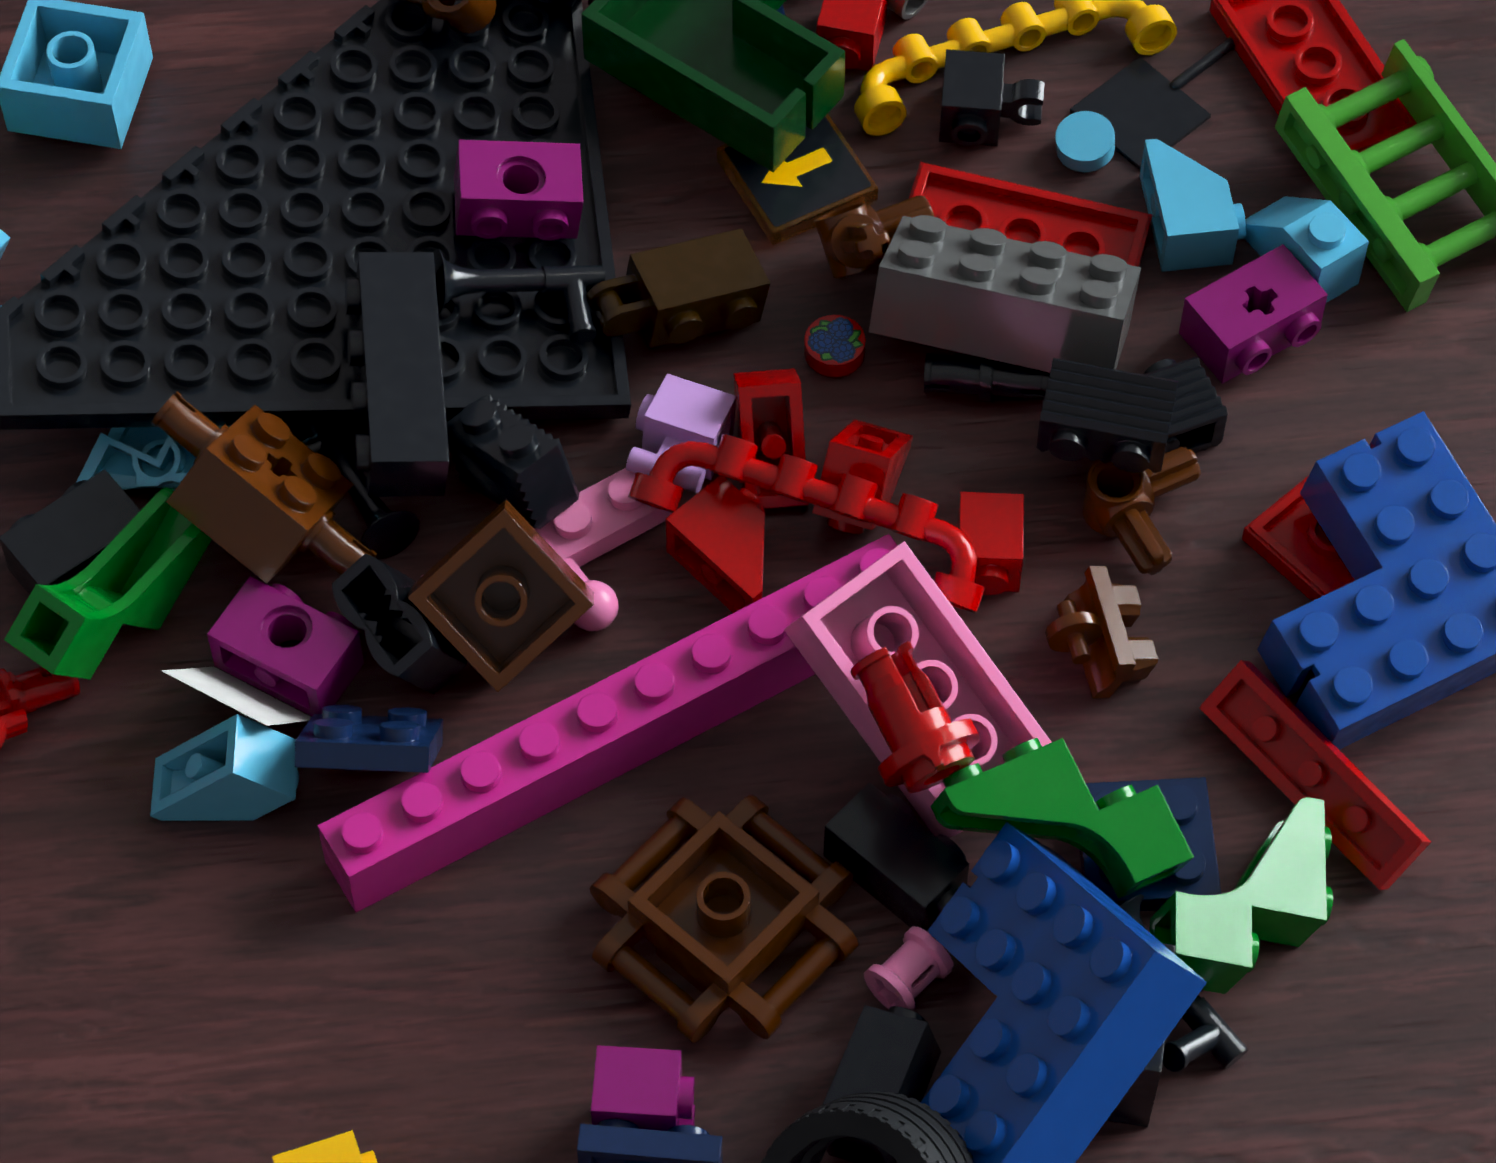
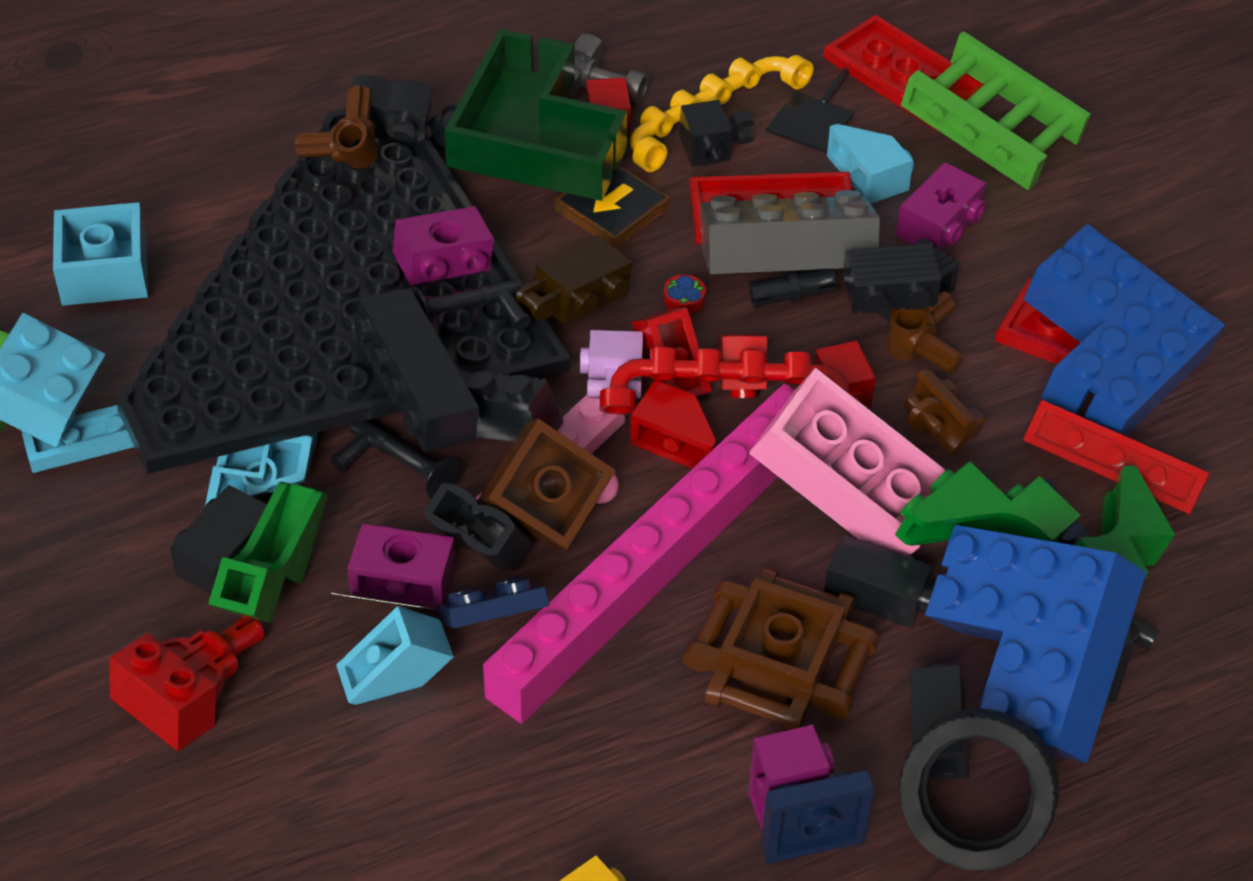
camera: 20 degrees left, 10 degrees down
(259, 490) = (349, 464): reddish brown brick -> none
(859, 236) = (676, 222): reddish brown axle -> none
(909, 969) = (920, 645): bright pink bush -> none
(913, 721) = (871, 475): red piece -> none
(1085, 141) = (786, 142): medium azure tile -> none
(1316, 236) = (958, 150): medium azure slope -> none

